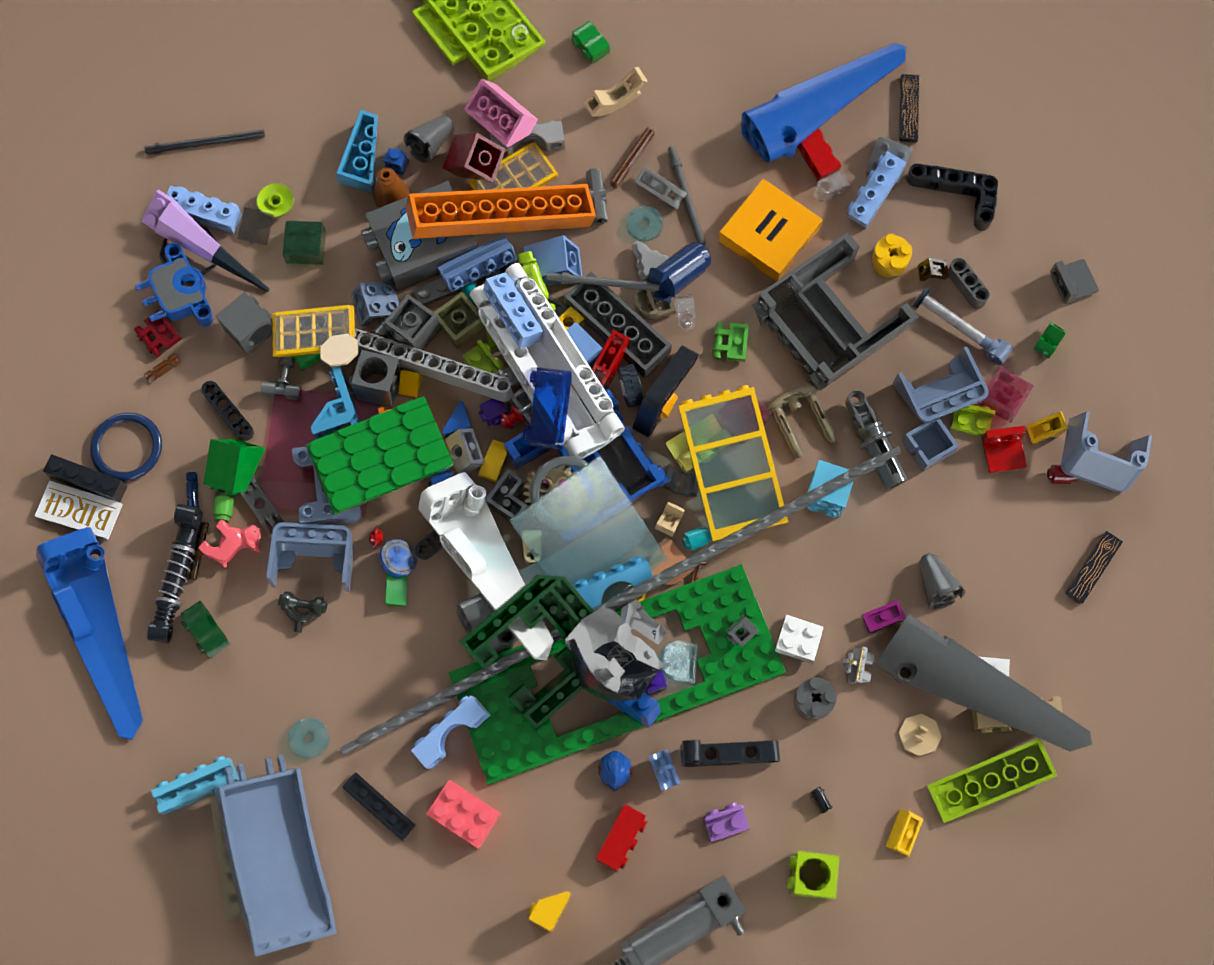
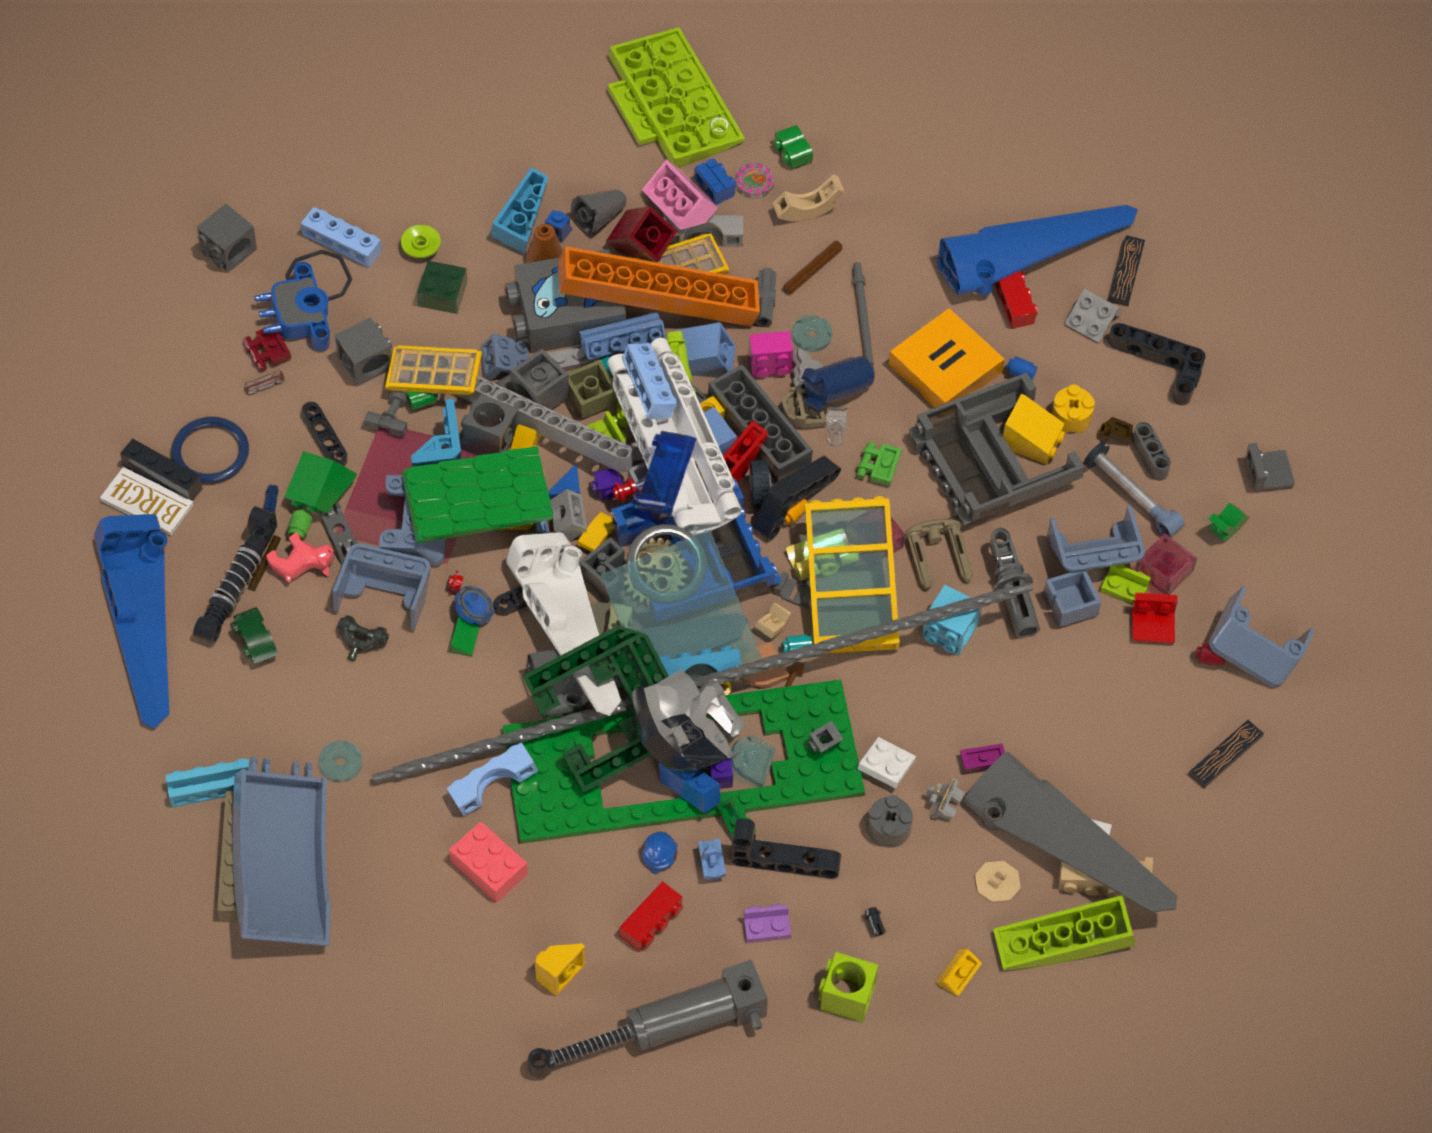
camera: 10 degrees right, 15 degrees down
(96, 232) = (226, 238): none -> dark grey brick
(178, 226) = (309, 244): lavender plate -> none
(203, 141) = (357, 173): black bar -> none
(255, 226) = (394, 263): clear smoke piece -> none
(339, 350) = (457, 389): tan piece -> none
(379, 806) = (400, 840): black tile -> none
(528, 89) = (715, 181): none -> blue brick
(562, 81) = (754, 180): none -> clear tile
(565, 278) = (714, 365): dark grey bar -> none
(613, 254) = (770, 354): none -> dark pink brick
(660, 187) = (836, 299): light grey plate -> none
(677, 725) = (731, 811): none -> green plate
(832, 186) = (1025, 330): clear piece -> none
(837, 224) = (1020, 366): none -> blue brick
(862, 285) = (1033, 431): none -> yellow slope
(876, 189) = (1070, 340): light blue brick -> none
(939, 582) = (1051, 736): dark grey cone -> none
(1047, 427) = (1204, 605): yellow slope -> none

